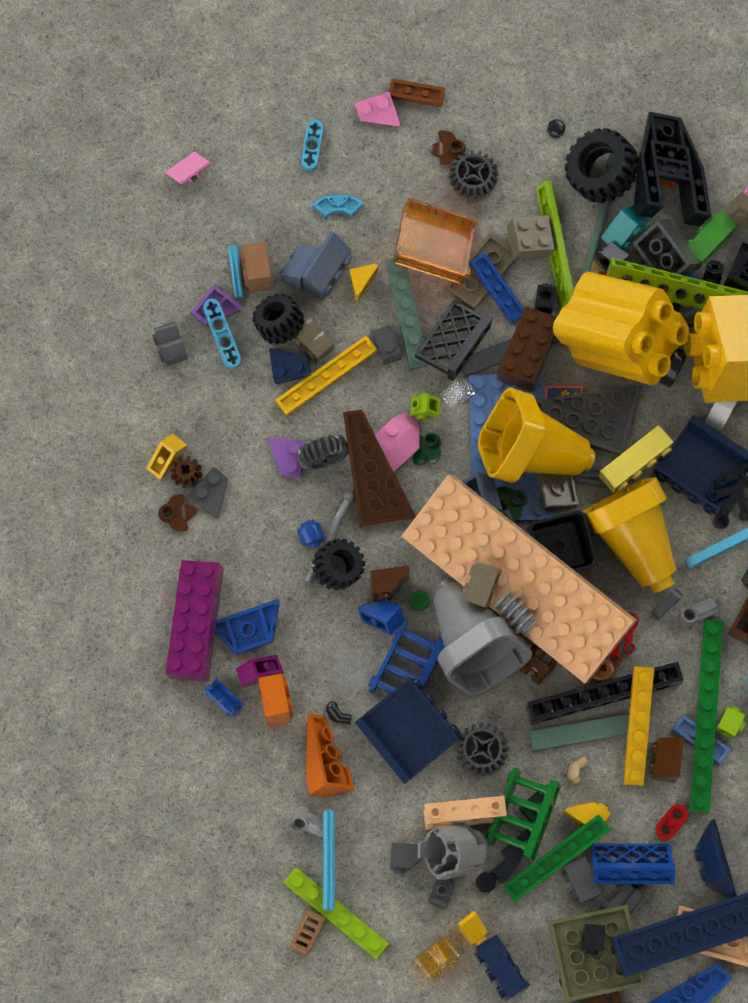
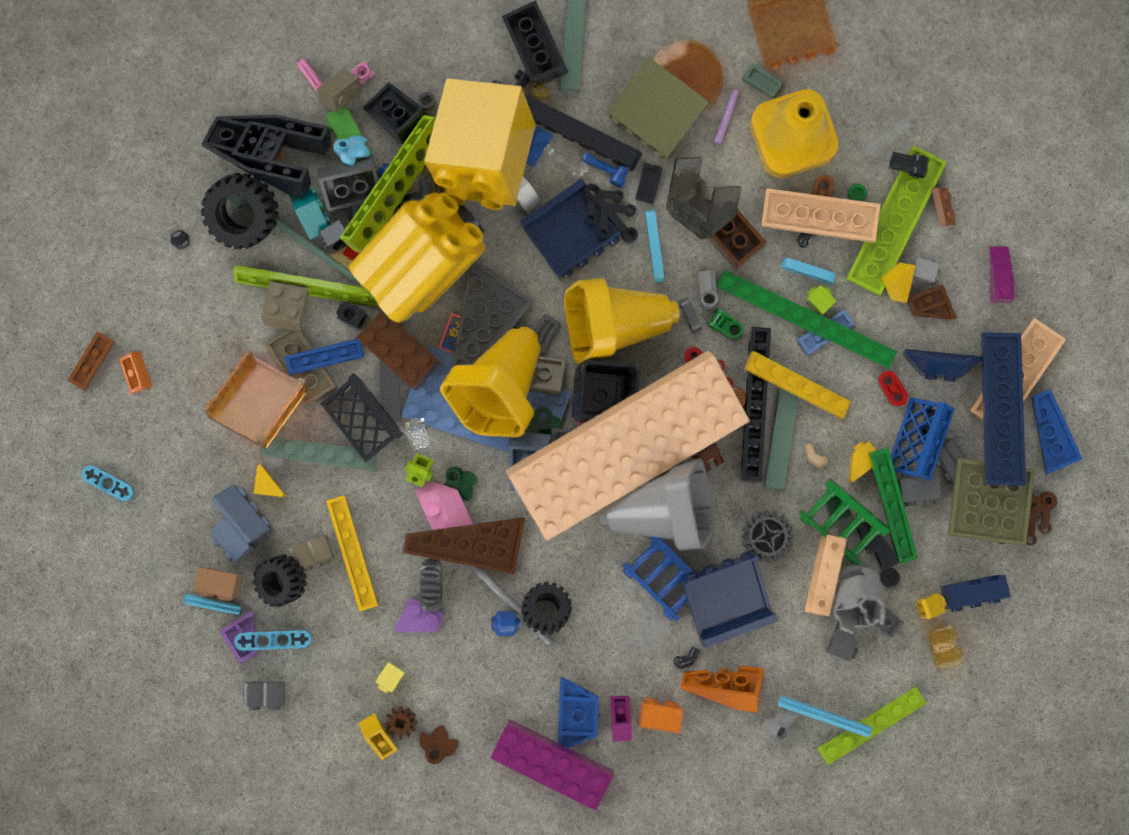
camera: 70 degrees left, 10 degrees up
(188, 168) = (86, 615): bright pink piece -> none
(210, 492) = (428, 705): dark grey wing -> none
(224, 448) = (390, 677): none -> light yellow brick
(227, 700) = (628, 765): blue hinge -> none
(288, 366) = (329, 586): dark blue wing -> none
(294, 945) = (894, 770): medium nougat slope -> none
(338, 204) = (179, 479): medium azure tile -> none
(378, 110) = (96, 405): bright pink wing -> none
(382, 615) = (610, 583): blue slope -> none
(386, 345) = (341, 484): dark grey slope -> none
(388, 582) = (582, 569): reddish brown slope -> none
(419, 600) = (605, 543): green tile -> none
(420, 133) = (135, 372): none -> orange slope
(445, 147) = (159, 354): reddish brown plate -> none
(481, 584) = (625, 482): dark tan brick -> none
(482, 164) = (181, 343): dark grey gear -> none
(515, 613) = (666, 460): light grey piece -> none
(593, 938) = (981, 500): black brick -> none
(636, 459) = (543, 290): light yellow brick -> none
(667, 759) = (836, 370): reddish brown slope -> none
(670, 638) = (725, 324): none -> green piece
(698, 241) = (351, 148): none -> medium azure plate
(713, 272) = (385, 147): black wheel -> none

